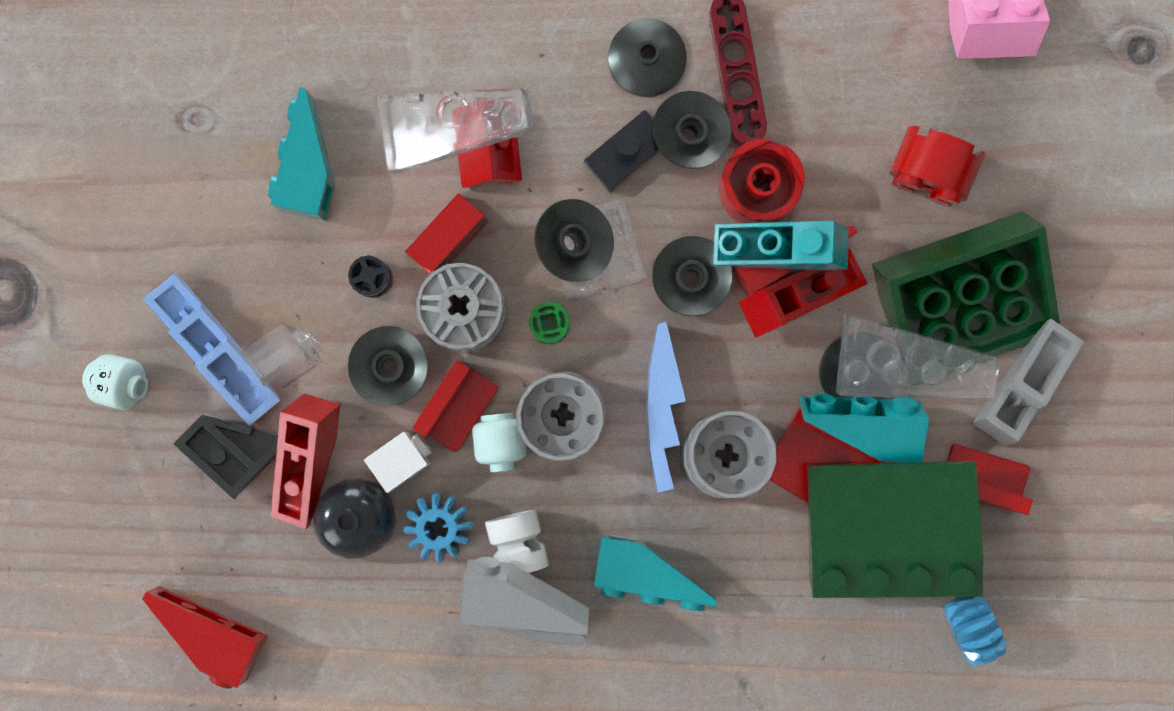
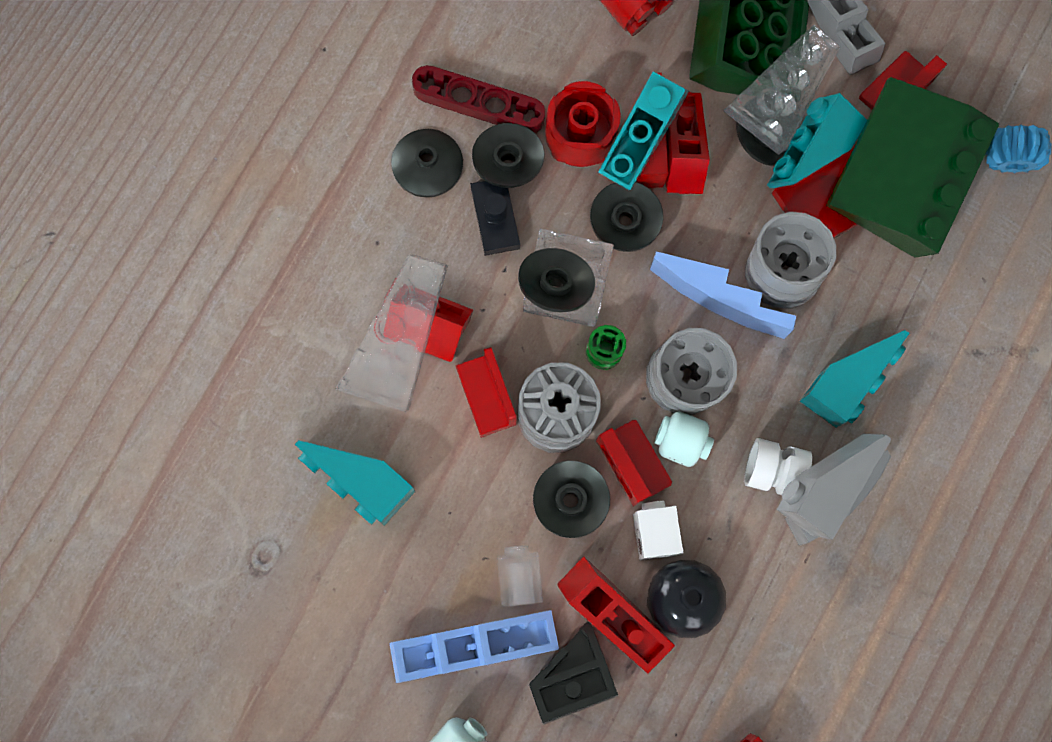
camera: 70 degrees left, 10 degrees down
(366, 270) = (486, 467): black wheel -> none
(444, 540) = (744, 532): dark azure gear -> none

